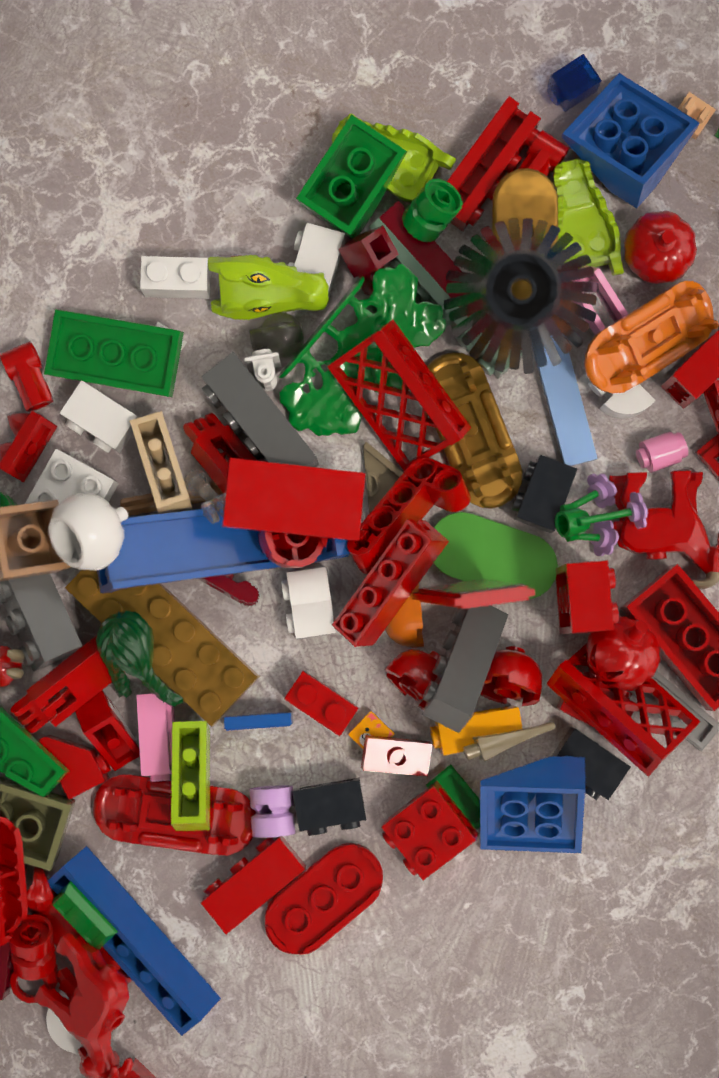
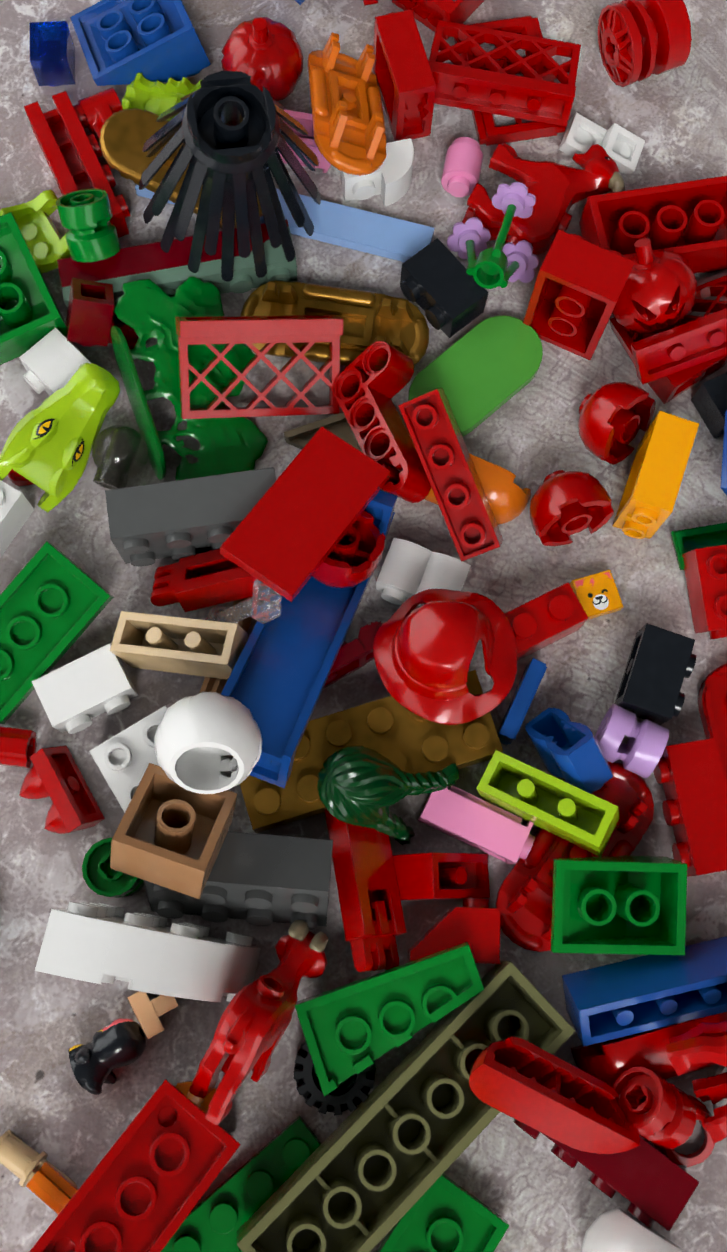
camera: 65 degrees left, 10 degrees down
(39, 893) = (591, 1057): red piece -> none
(83, 916) = (648, 1020): green tile -> none
(149, 858) = (619, 905): none -> green slope
(236, 771) = (569, 750): none -> blue brick
(247, 639) = (430, 651): none -> red piece
(263, 365) = (138, 471): white hinge -> none
(396, 755) = (635, 579): plate -> none
(464, 666) = (585, 444): dark grey brick -> none
(474, 593) = (517, 380): piece -> none
(492, 745) = (690, 449): dark tan piece -> none

